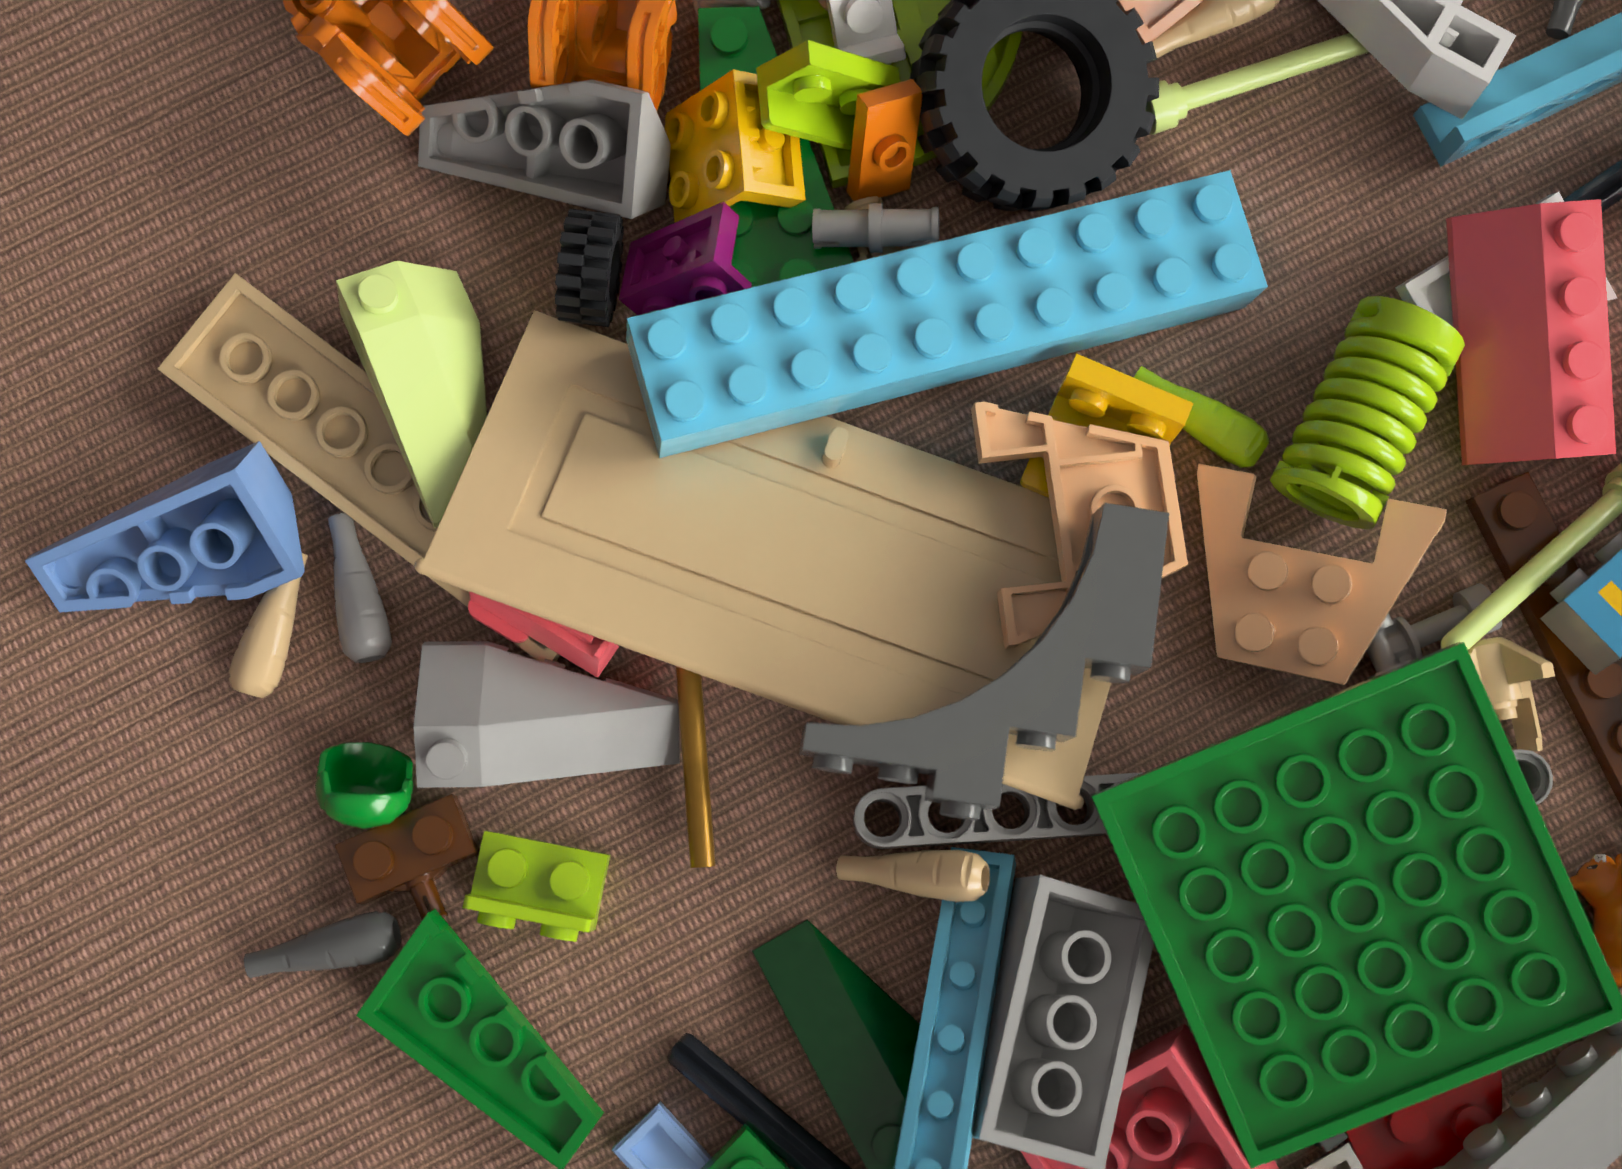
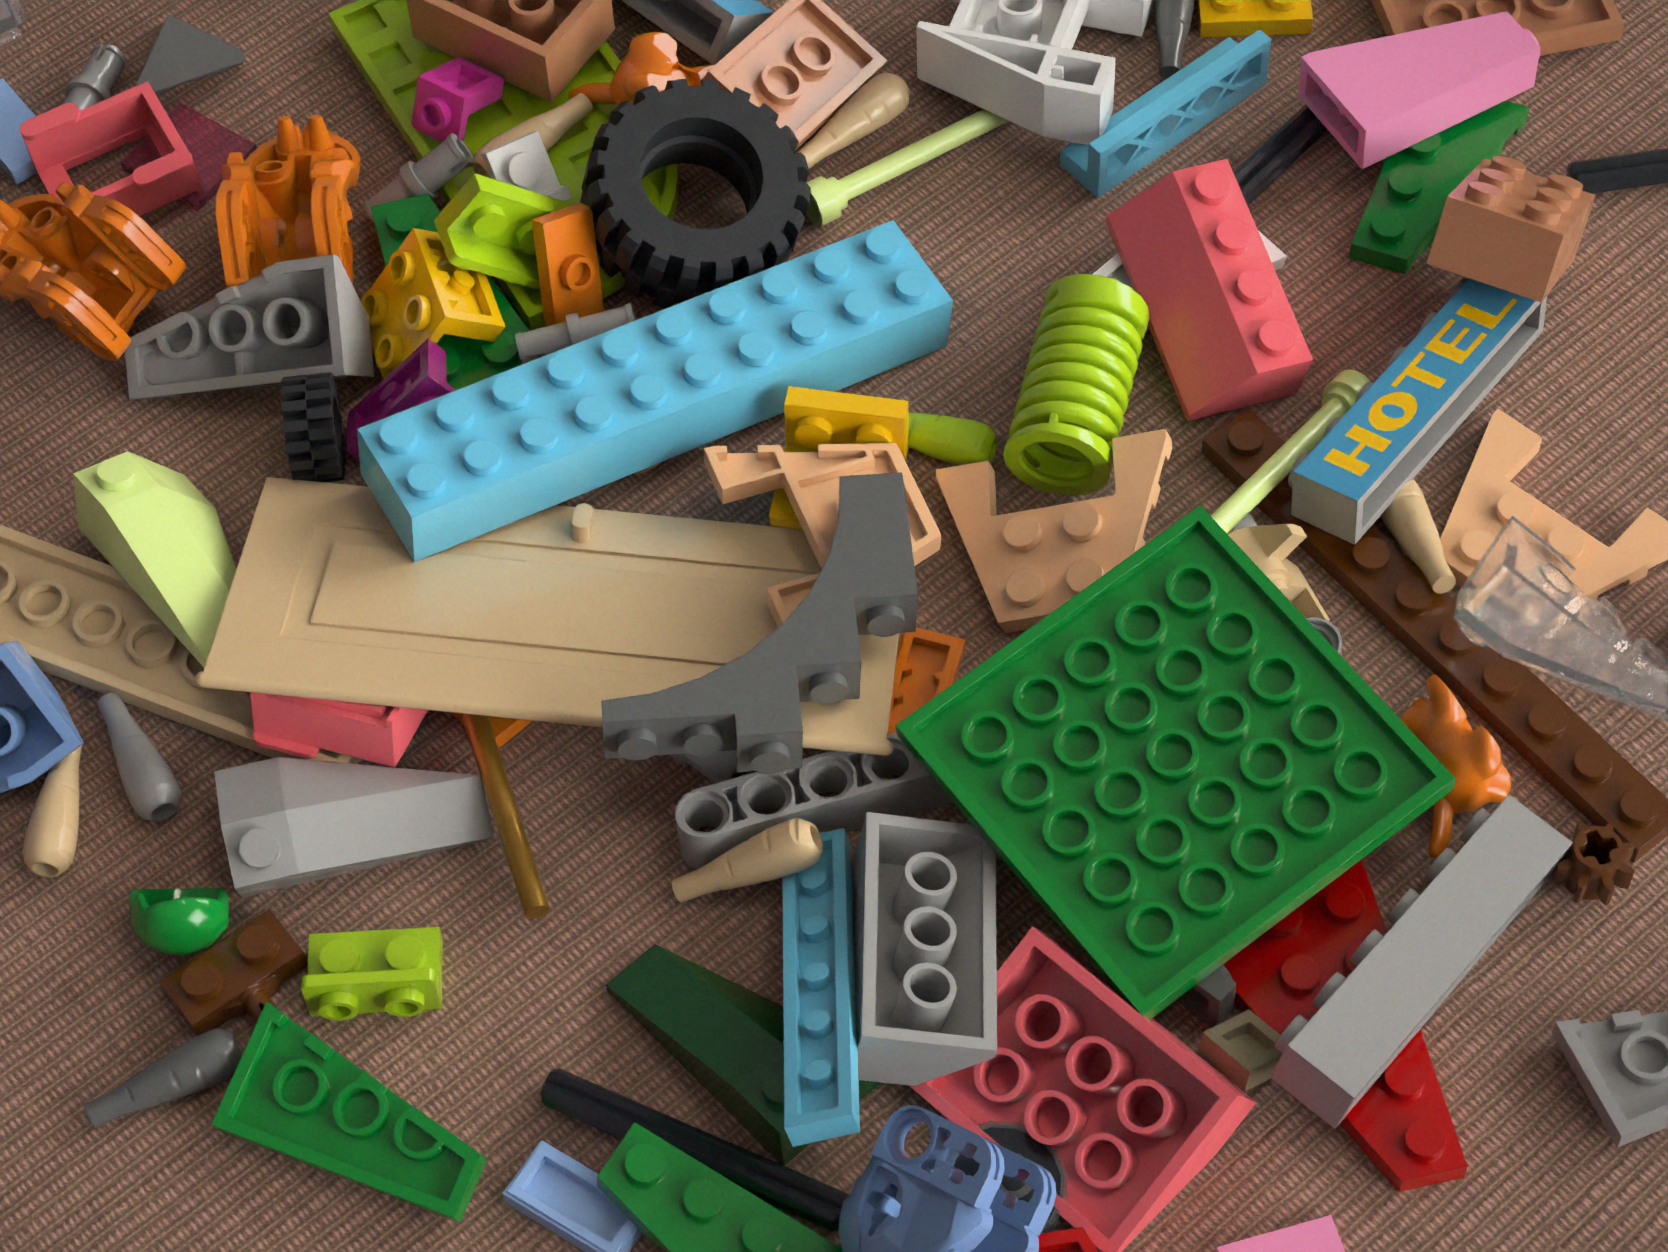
camera: 10 degrees left, 25 degrees down
(1129, 716) = (924, 668): none -> orange plate

